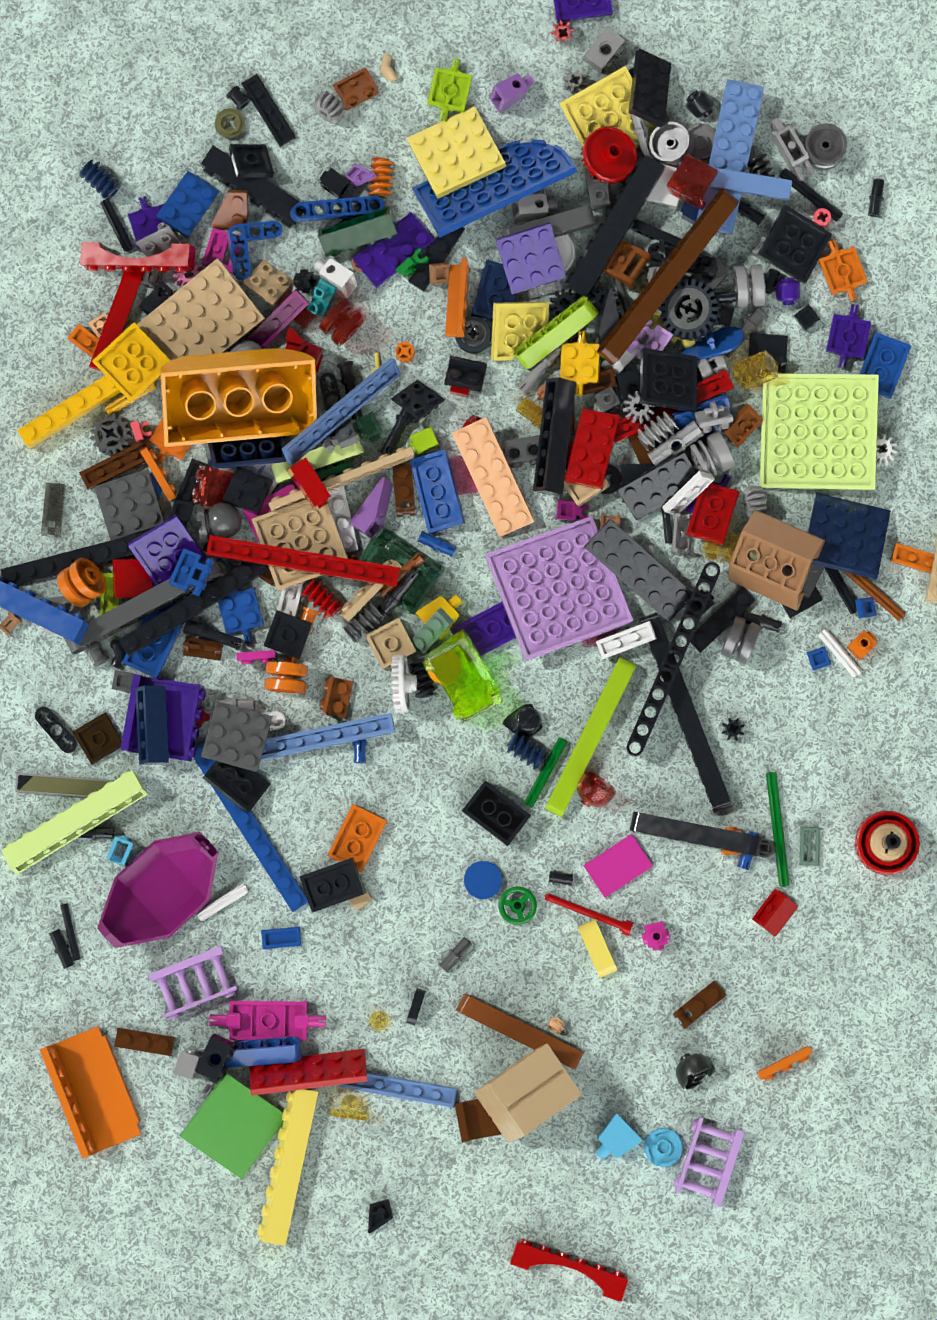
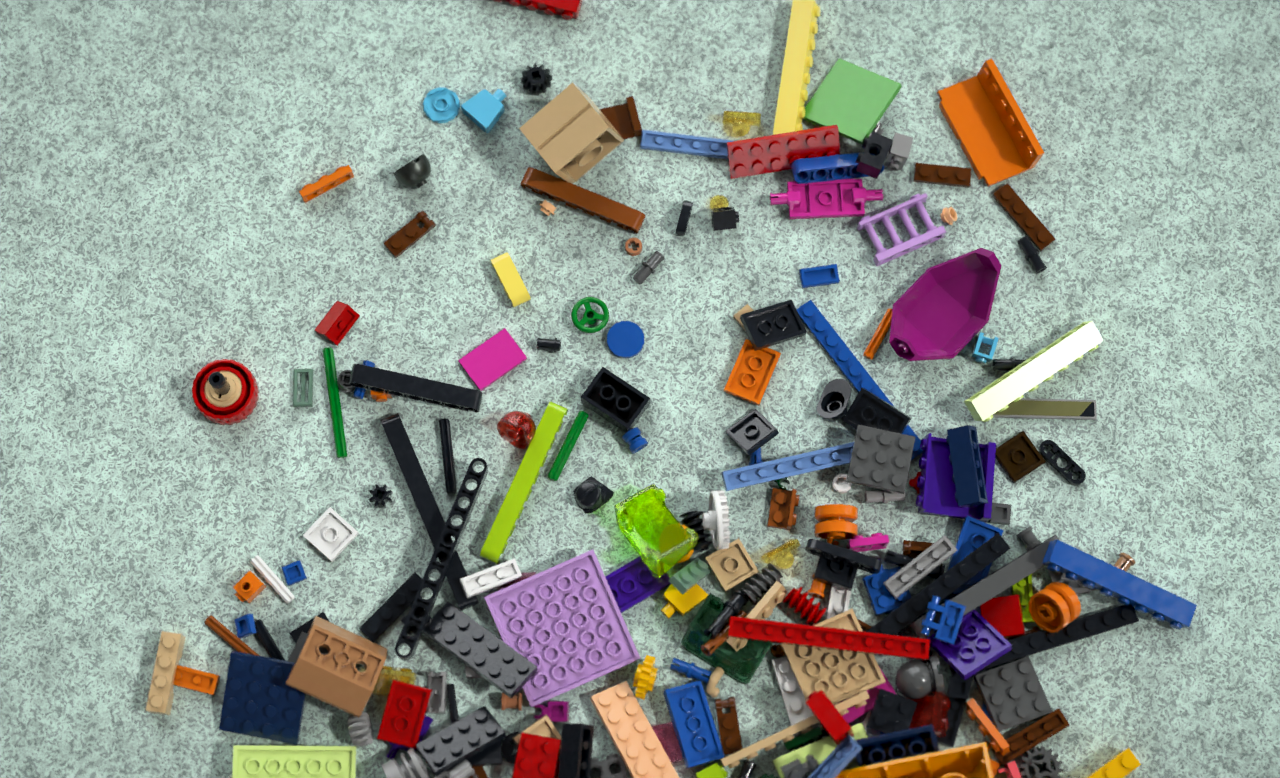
camera: 170 degrees right, 10 degrees down
(53, 509) = (1091, 686): clear smoke plate -> none
(65, 991) = (1023, 217): none -> reddish brown plate
(70, 932) = (1025, 272): black bar -> none
(119, 653) = (1007, 536): black arm -> none
(142, 995) = (949, 215): none -> light nougat plate
(207, 628) = (920, 567): none -> light grey tile
(222, 902) = (879, 306): white axle -> none
(225, 871) = (879, 335): none -> orange axle
(277, 803) = (834, 400): none -> black piece
(281, 640) = (843, 556): none -> black beam
(341, 651) = (782, 555): none -> clear yellow tile
(361, 774) = (752, 432): none -> tile
(373, 511) = (759, 697): medium lavender slope -> none
(374, 1002) = (724, 218): none -> black brick
(379, 1214) = (707, 33): black piece -> none
(417, 525) = (711, 688): none -> tan arm
(466, 983) = (629, 250): none -> nougat bush
(475, 770) = (634, 440): none -> blue wheel
(481, 536) = (645, 677): none -> yellow gear
(526, 750) = (588, 464): dark blue piece -> none
(555, 1171) = (539, 84): none -> black gear
(623, 926) = (485, 302): red piece -> none
(650, 929) = (453, 293): dark pink brick -> none
(665, 765) = (447, 453): none -> black axle
(688, 492) = (430, 732): white tile -> none
(728, 1157) = (384, 81): lavender fence -> none
(741, 640) = (373, 583): flat silver wheel -> none
(763, 621) = (352, 606): black pin -> none
(782, 693) = (331, 534): none -> white plate

